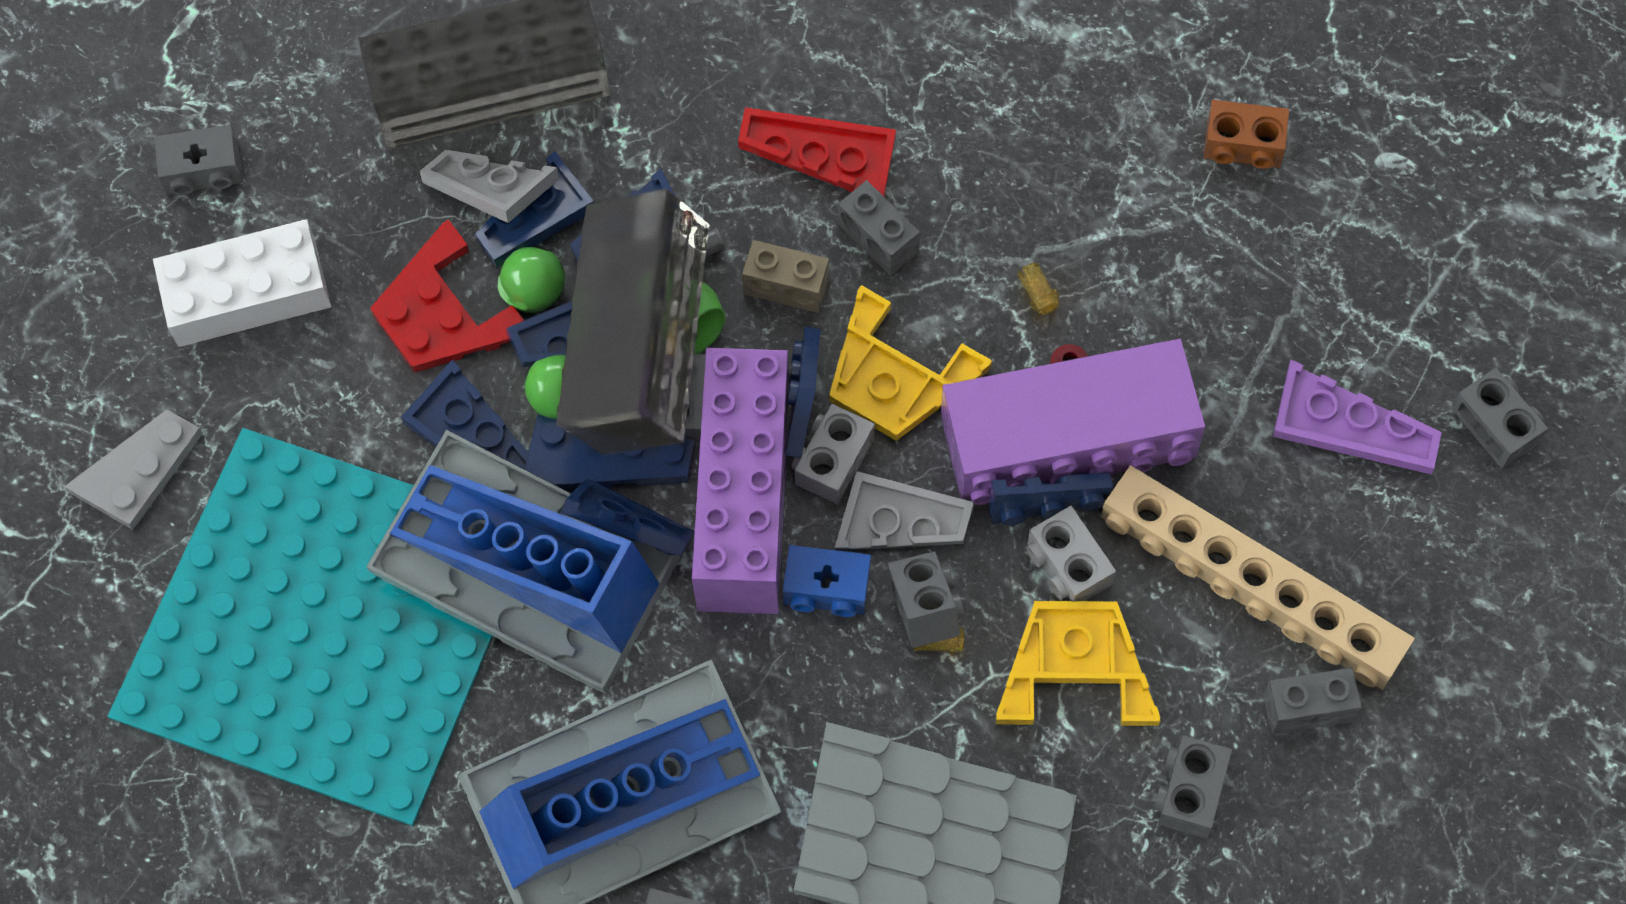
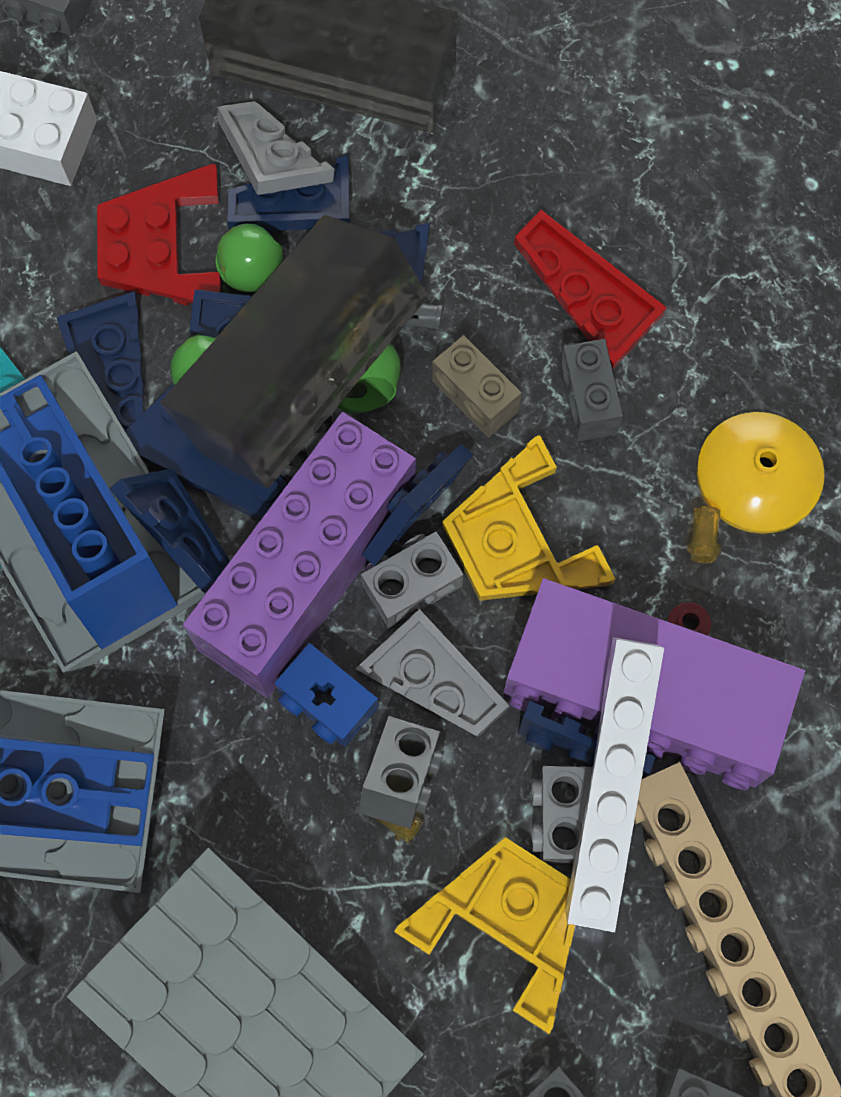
camera: 30 degrees right, 5 degrees up
(1043, 235) = (746, 491): none -> yellow dish
(1112, 544) = (614, 784): none -> white arch

